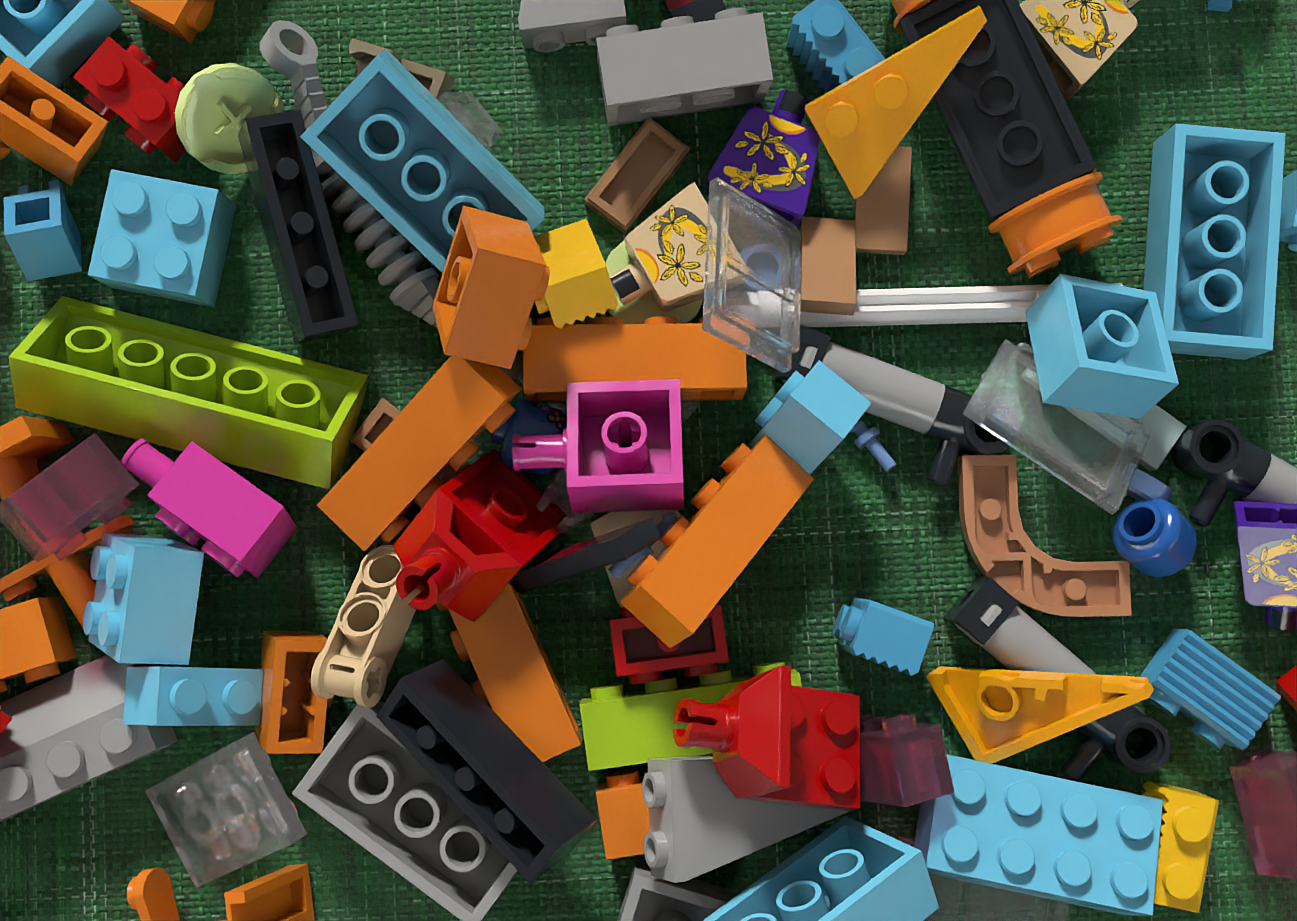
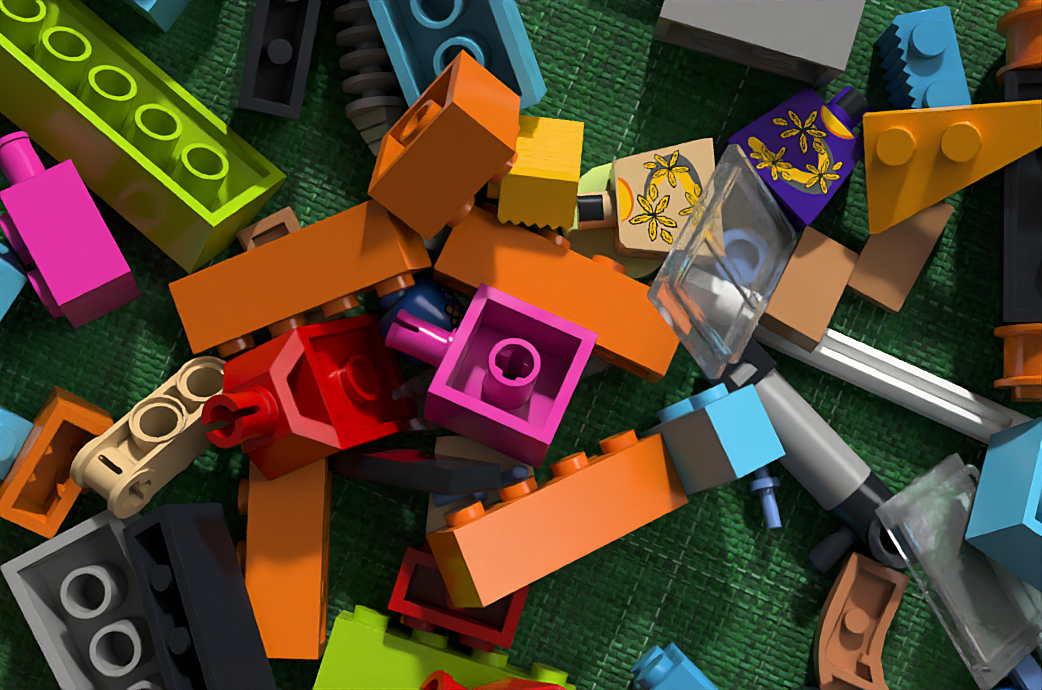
camera: 25 degrees right, 0 degrees up
(637, 175) = (657, 103): medium nougat tile -> none

